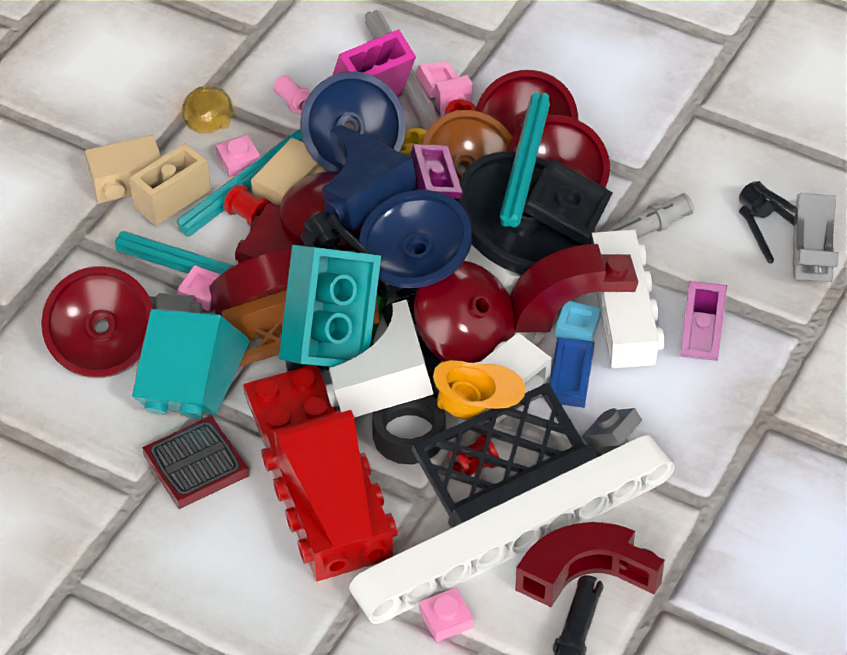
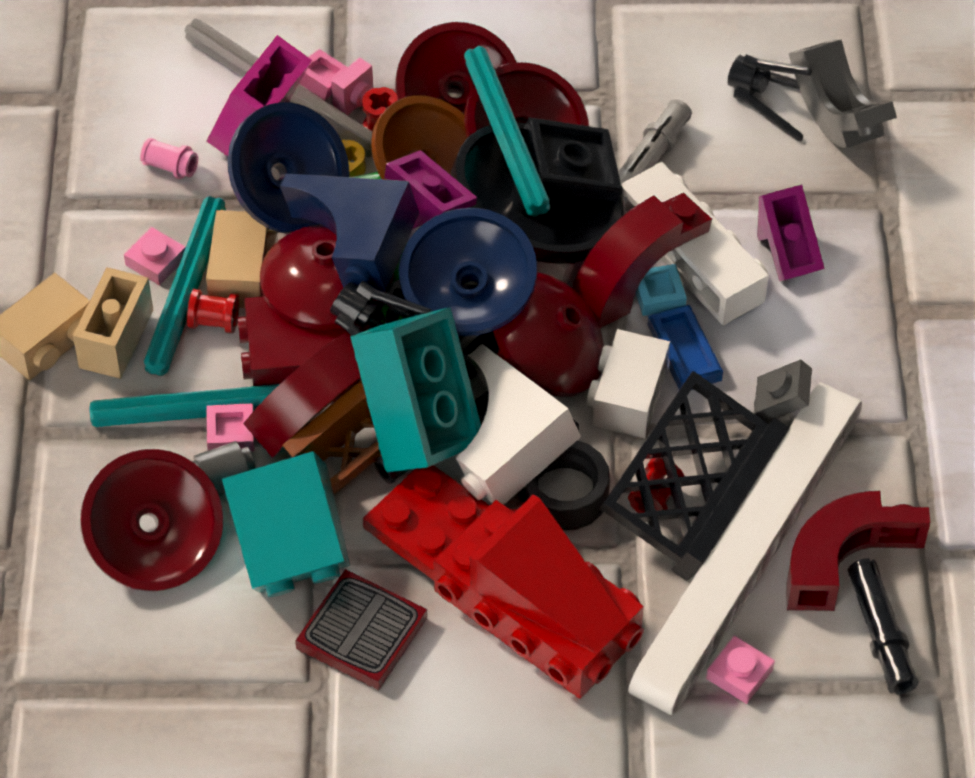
camera: 30 degrees left, 5 degrees up
(207, 109) = (83, 216): clear yellow hair -> none
(475, 387) = (625, 409): light orange piece -> none

